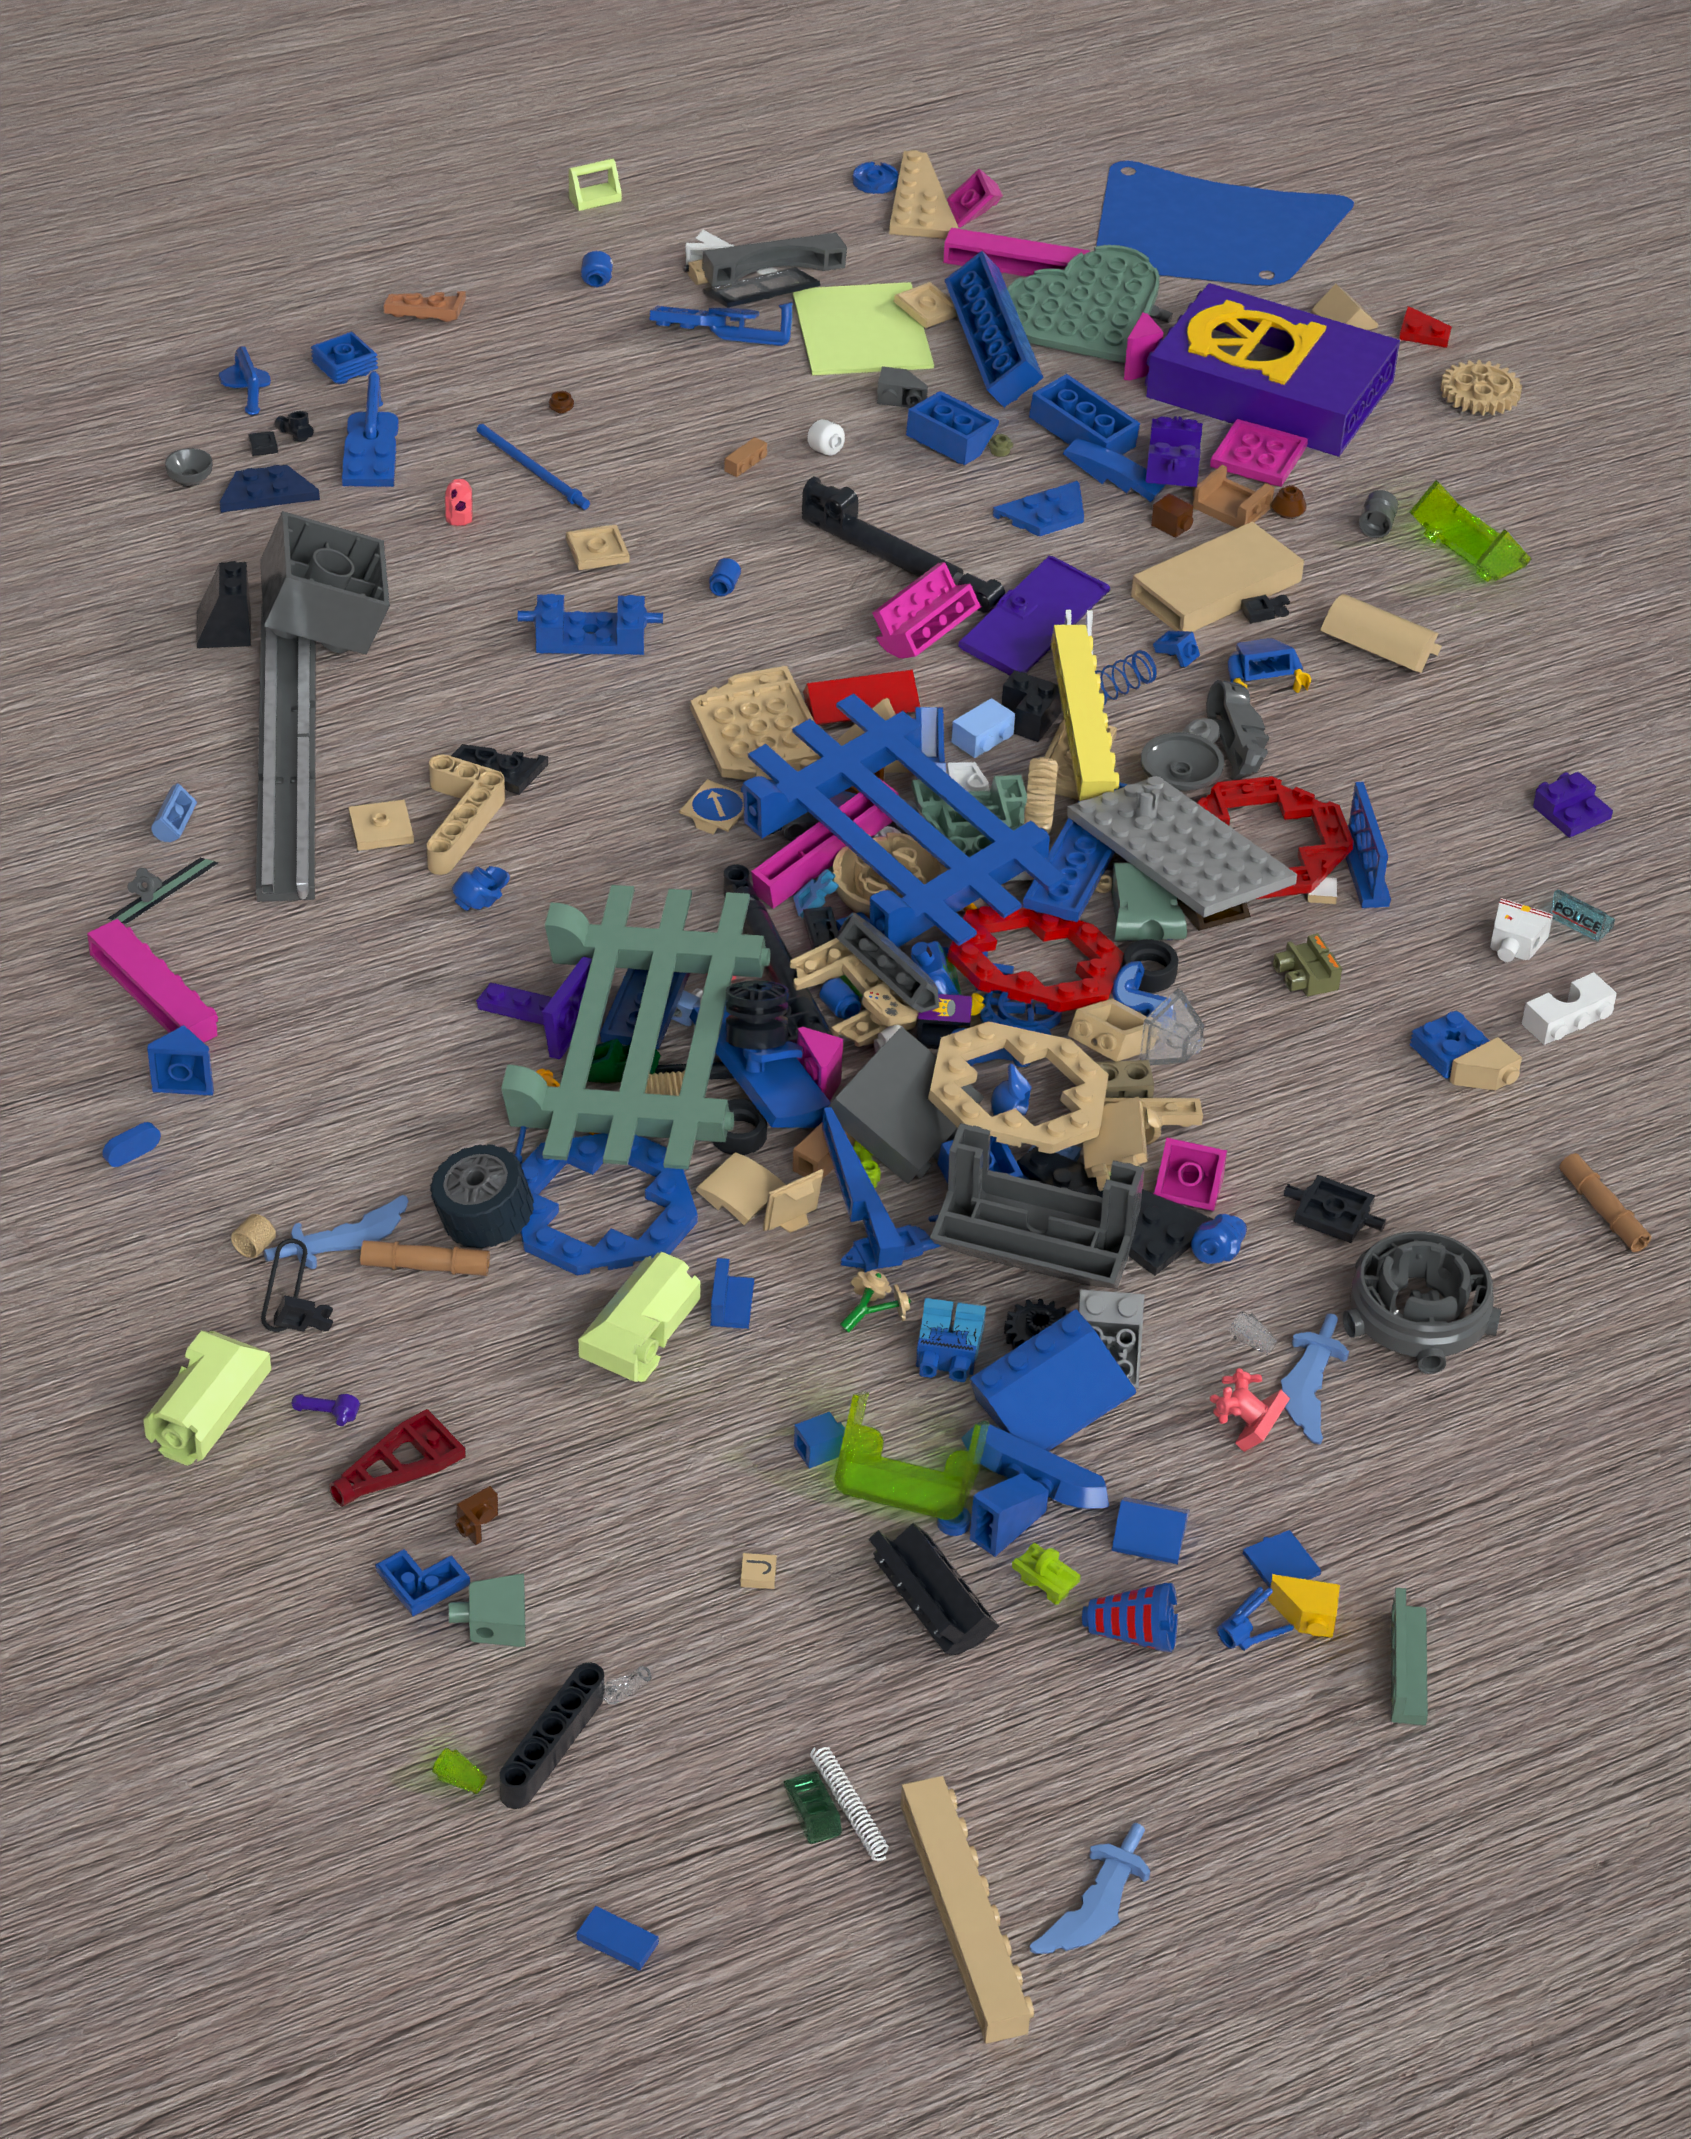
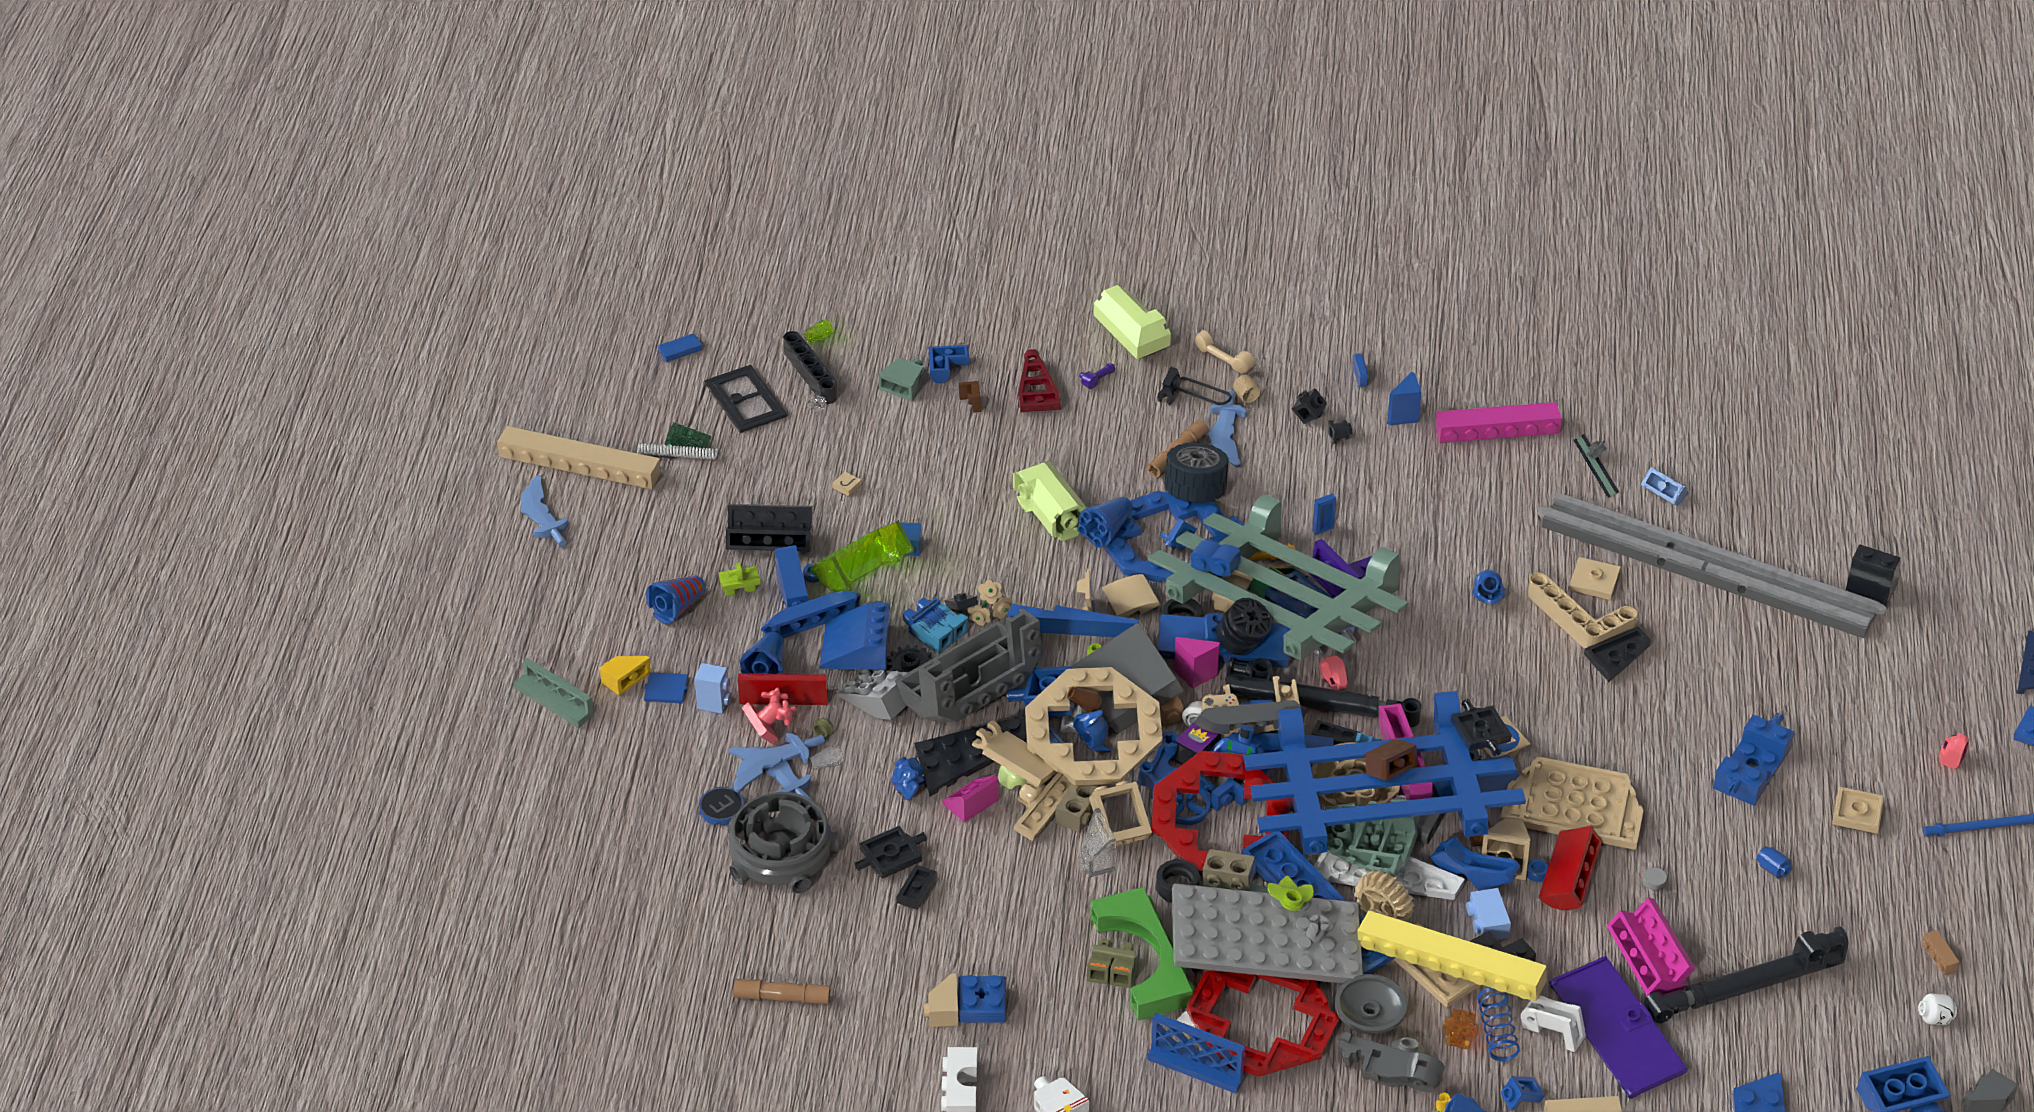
camera: 125 degrees right, 0 degrees up
(198, 1267) = (1240, 363): none -> tan piece
(261, 1157) = (1309, 405): none -> black brick
(275, 1118) = (1339, 430): none -> black brick
(324, 584) = (1851, 604): dark grey brick -> none
(466, 1056) = (1324, 514): none -> blue tile
(608, 1172) = (1178, 529): none -> blue bracket
(639, 1237) = (1104, 520): none -> blue cone
(661, 1081) = (1215, 558): none -> blue brick
(667, 1791) = (745, 398): none -> black door
(731, 1298) = (1048, 554): blue panel -> none
(777, 754) = (1481, 728): none -> black plate
(815, 650) = (1654, 878): none -> light grey tile
(883, 805) = (1391, 759): none -> reddish brown brick
(897, 1324) = (961, 601): none -> black plate
(992, 1099) = (1085, 699): none -> reddish brown cone
(1123, 830) = (1290, 894): none -> lime plate
(1127, 989) = (1142, 851): animal -> none
(1129, 896) = (1229, 870): none -> dark tan brick
(1146, 702) = (1460, 1028): none -> clear orange brick
(1150, 1530) = (734, 643): blue slope -> none
(1157, 1465) = (765, 655): none -> blue cone
(1190, 1423) = (800, 688): none -> red brick
(1209, 1363) = (823, 727): none -> olive plate
(1238, 1627) = (637, 639): blue plant -> none
(1263, 1481) = (712, 688): none -> light blue brick
(1292, 915) = (1134, 914): none -> bright green arch
(1305, 1384) = (754, 763): none -> medium blue sword
(1360, 1163) = (916, 887): none -> black plate
(1411, 1397) = (720, 805): none -> black tile

